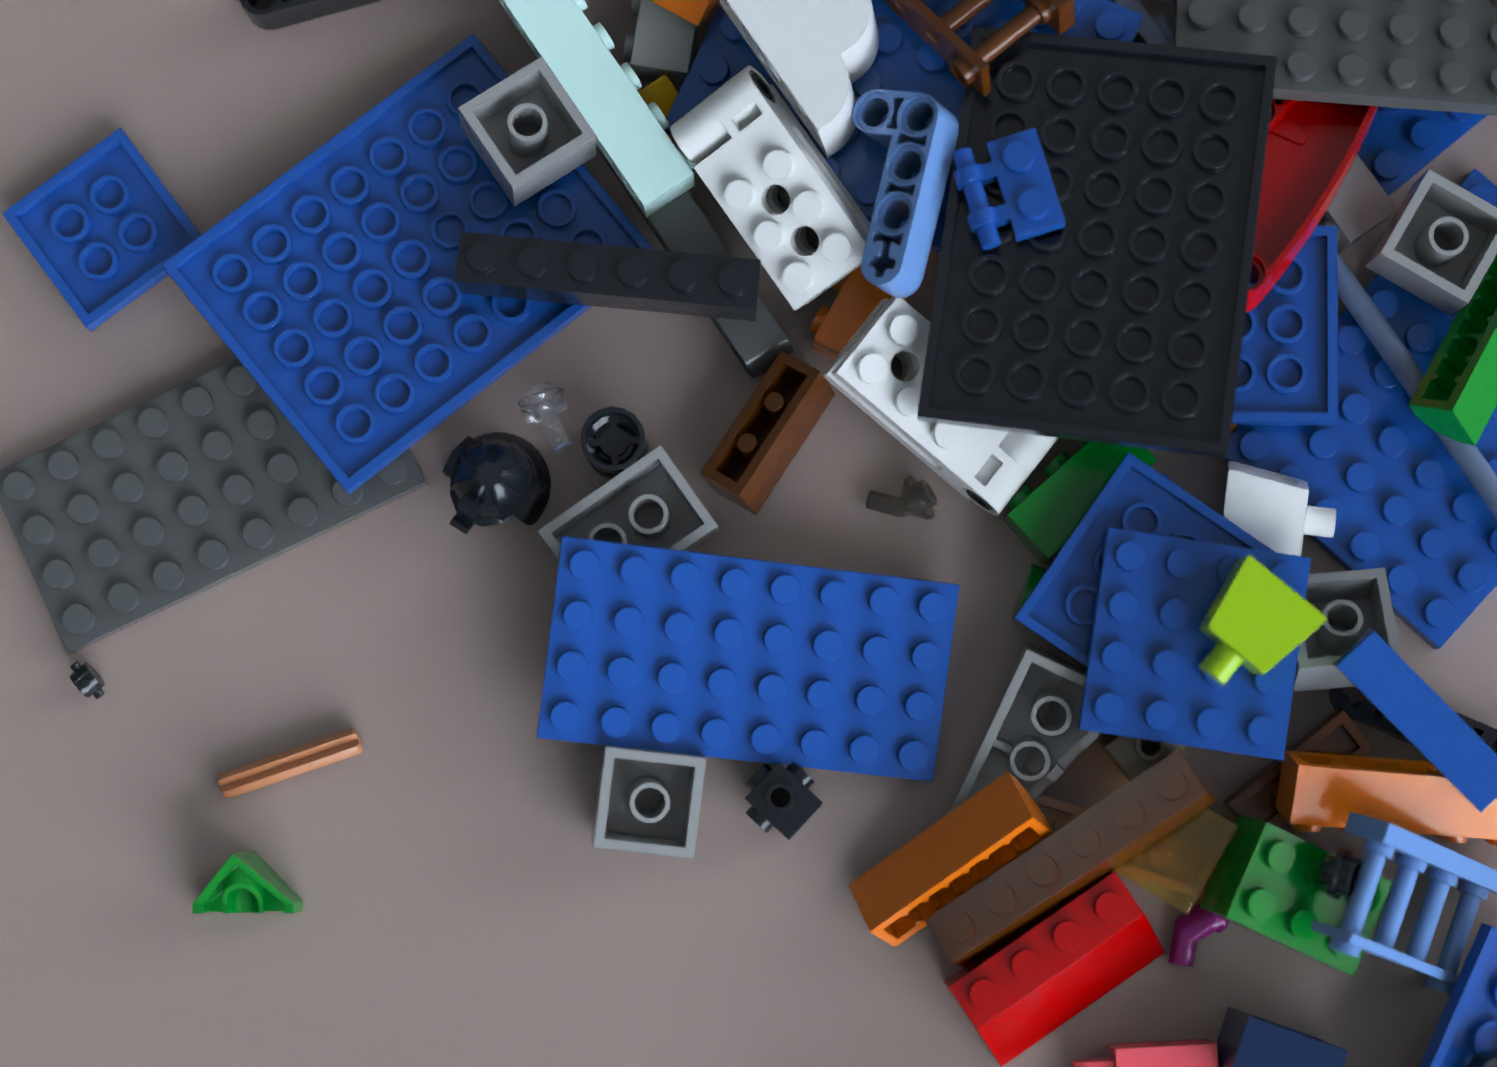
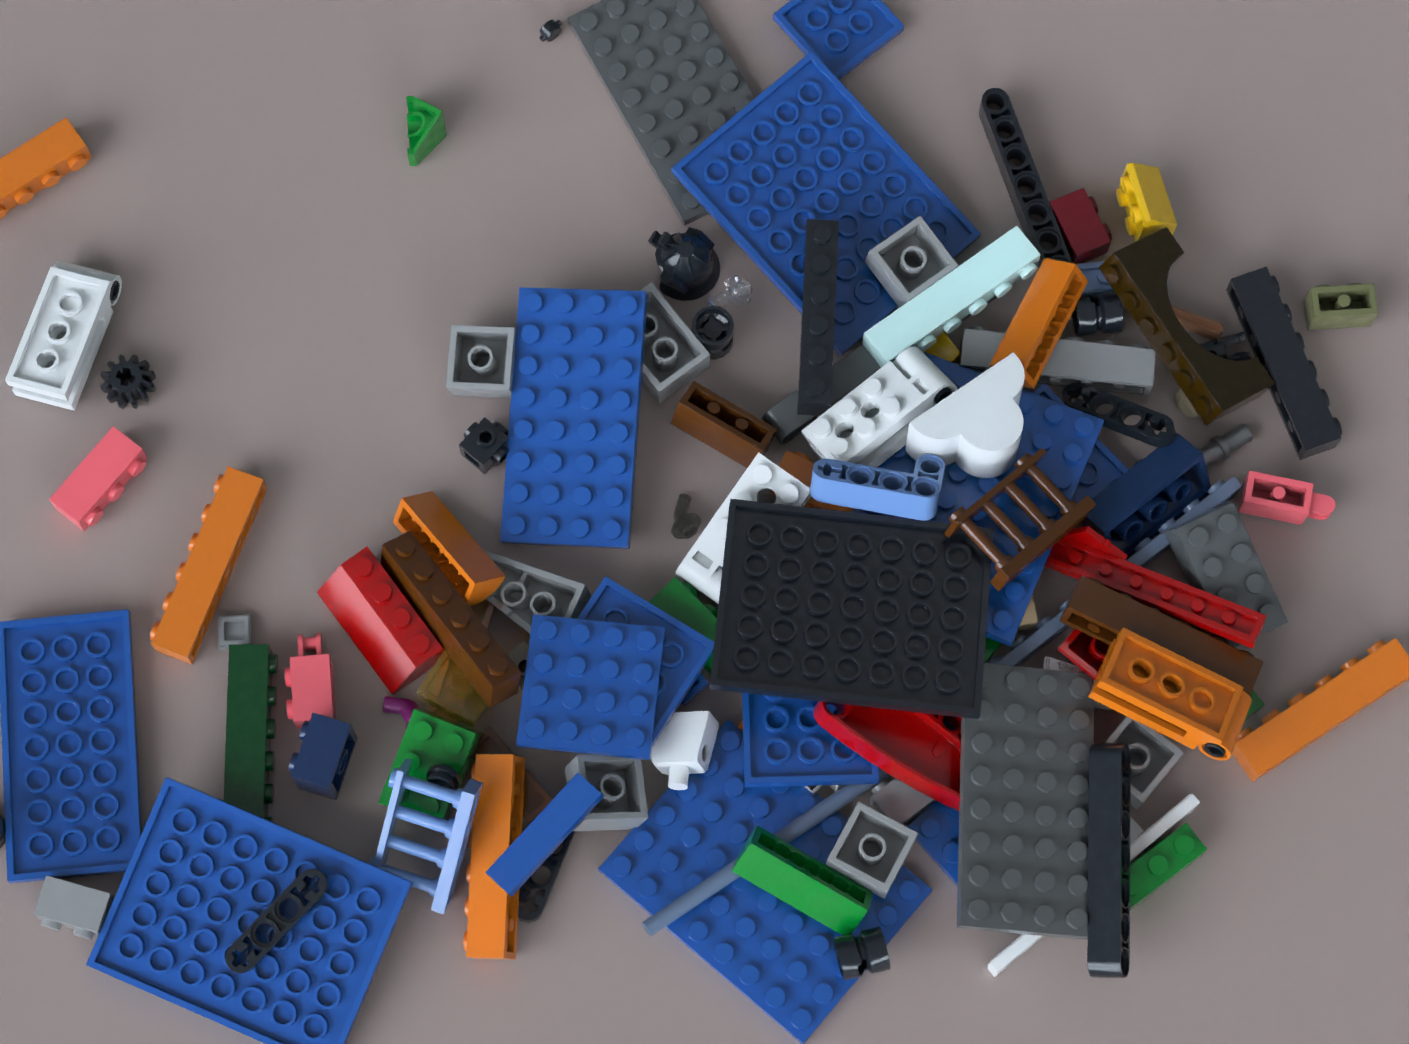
camera: 85 degrees right, 10 degrees down
(290, 763) = (502, 152): nougat axle -> none
(1024, 185) = (882, 558): blue plate -> none
(1254, 622) = (603, 711): lime torso -> none

